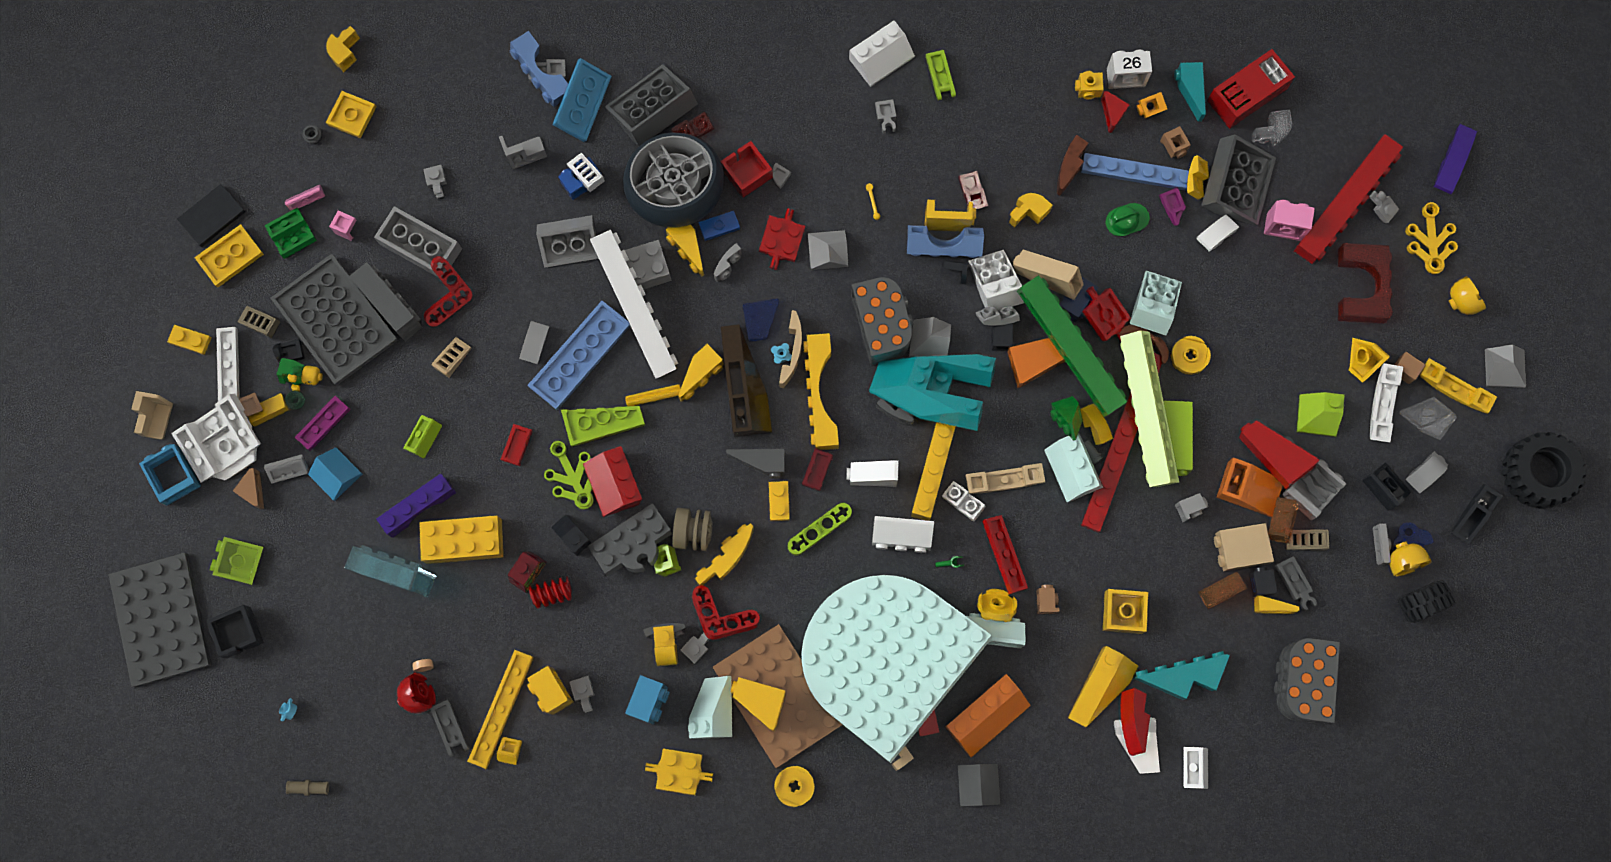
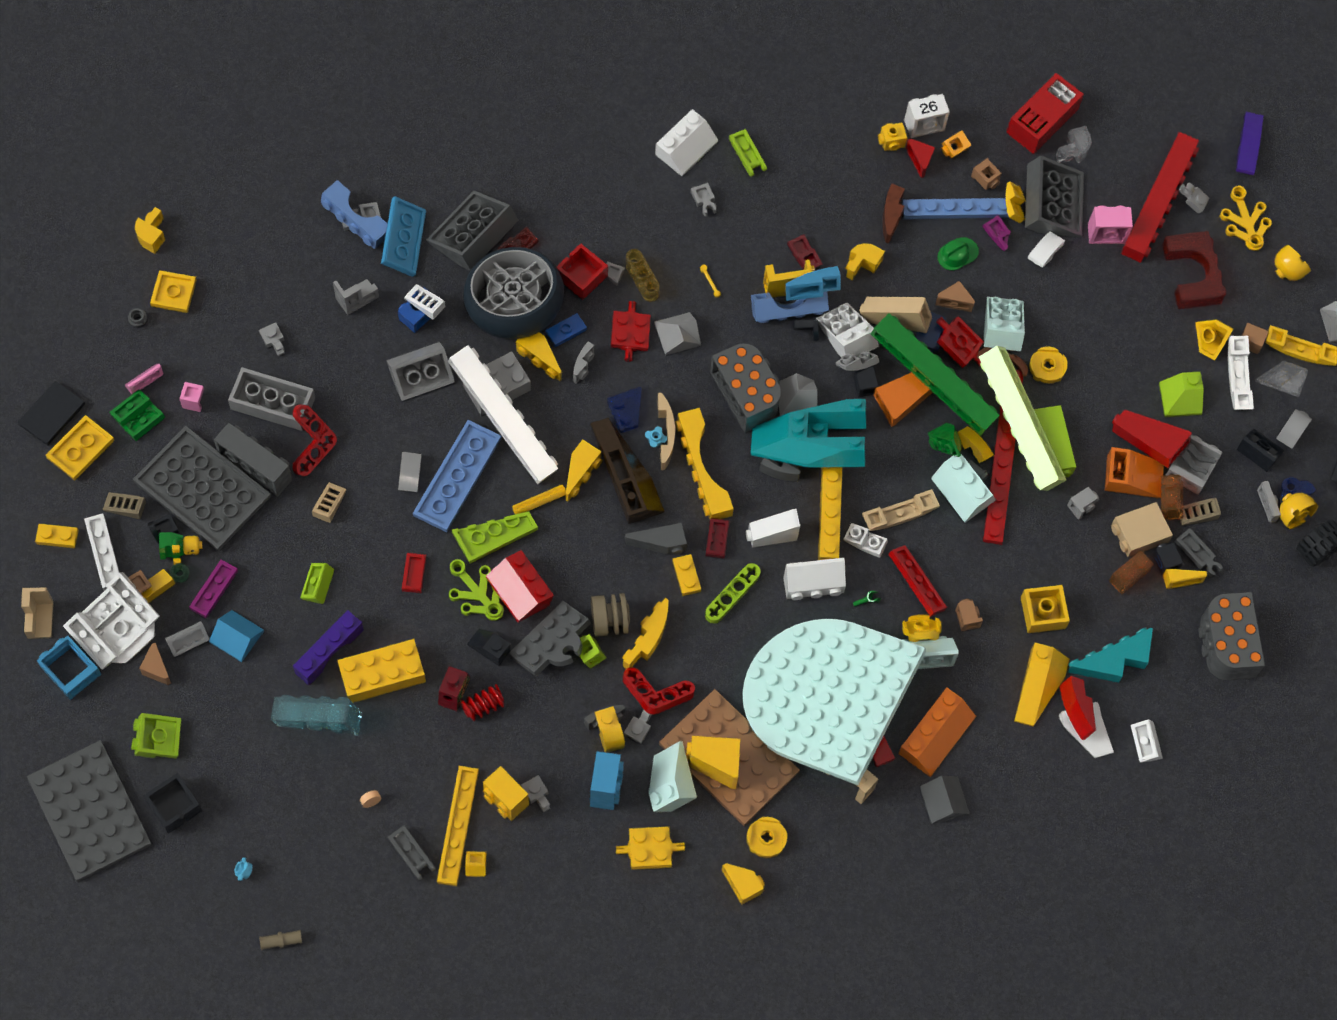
camera: 20 degrees left, 10 degrees down
(415, 694) = (369, 827): red cylinder -> none
(761, 828) = (743, 882): none -> yellow slope
(806, 191) = (642, 267): none -> clear yellow beam
(970, 228) = (814, 284): none -> dark azure slope
(1113, 266) = (956, 298): none -> medium nougat slope
(1191, 85) = (989, 122): teal slope -> none

